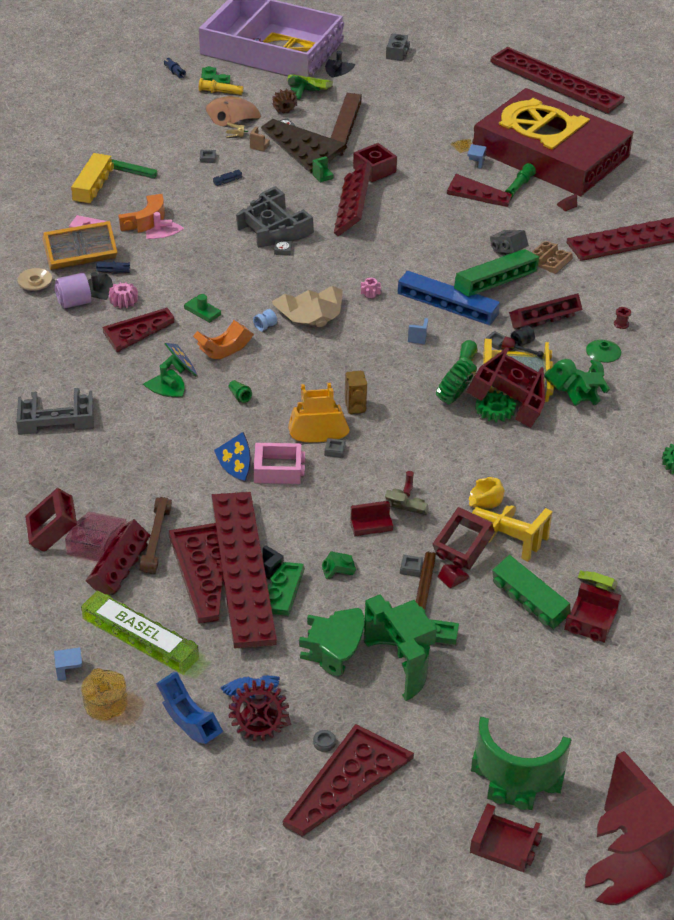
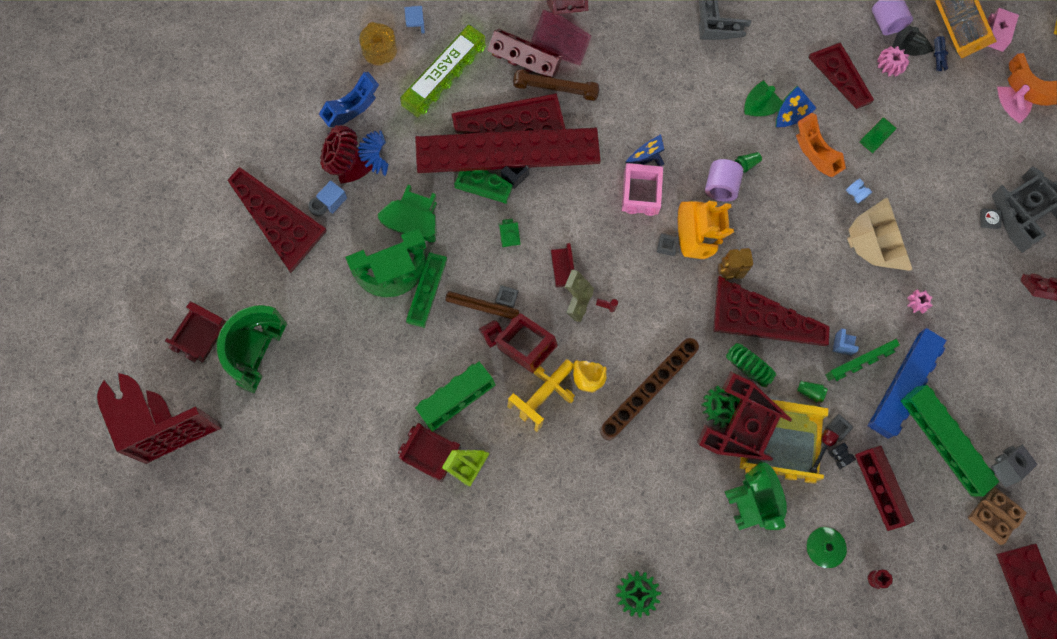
camera: 90 degrees right, 30 degrees up
(265, 401) = (724, 180): none -> lavender piece
(313, 719) = (332, 196): none -> medium blue panel
(402, 385) = (758, 316): none -> dark red wing
(435, 324) = (856, 364): none -> green plate
(490, 454) = (653, 380): none -> reddish brown beam

